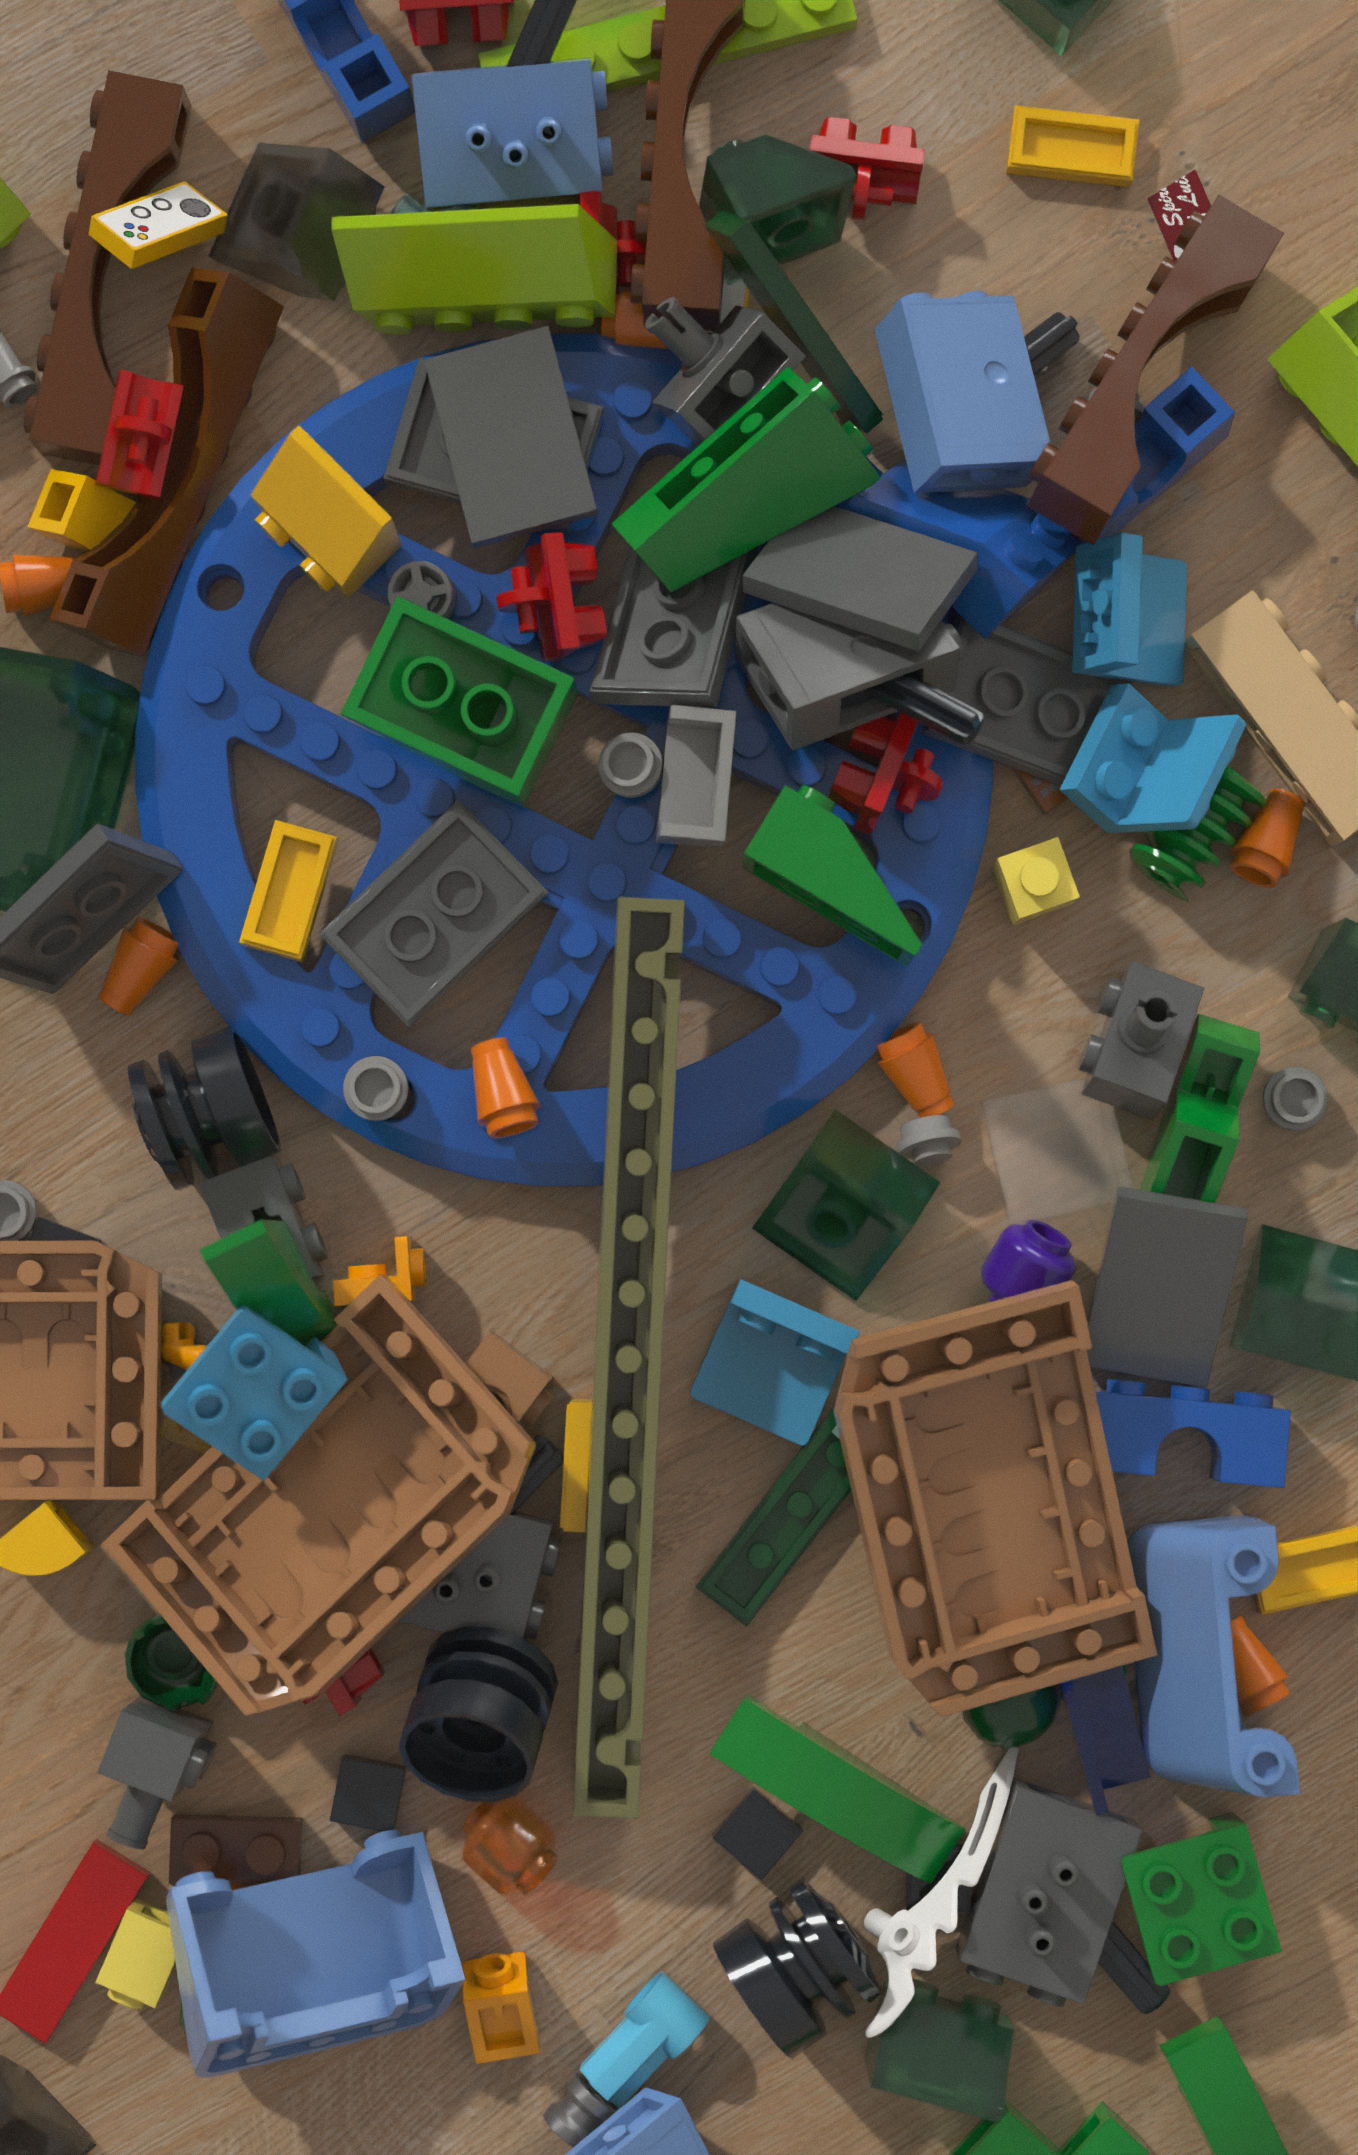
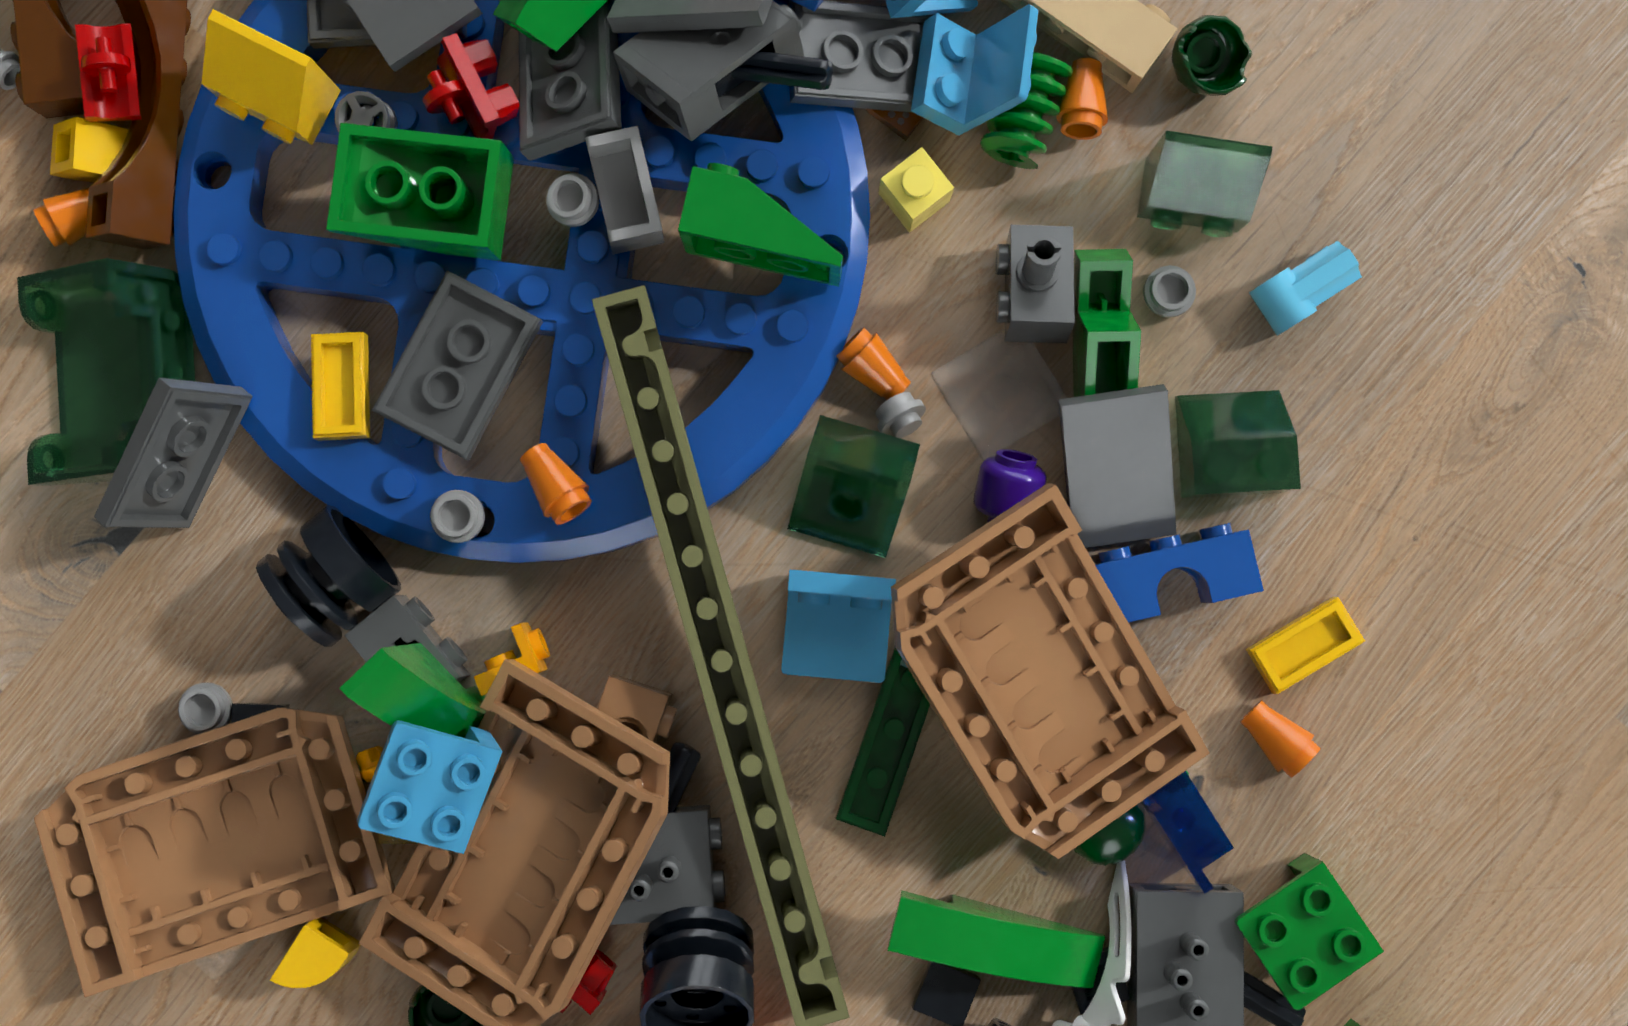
camera: 20 degrees left, 0 degrees up
(138, 965) = (246, 482): orange cone -> none
(576, 1466) = (710, 758): yellow tile -> none
(867, 791) = (761, 158): red hips -> none
(1190, 1687) = (1246, 771): medium blue windscreen -> none

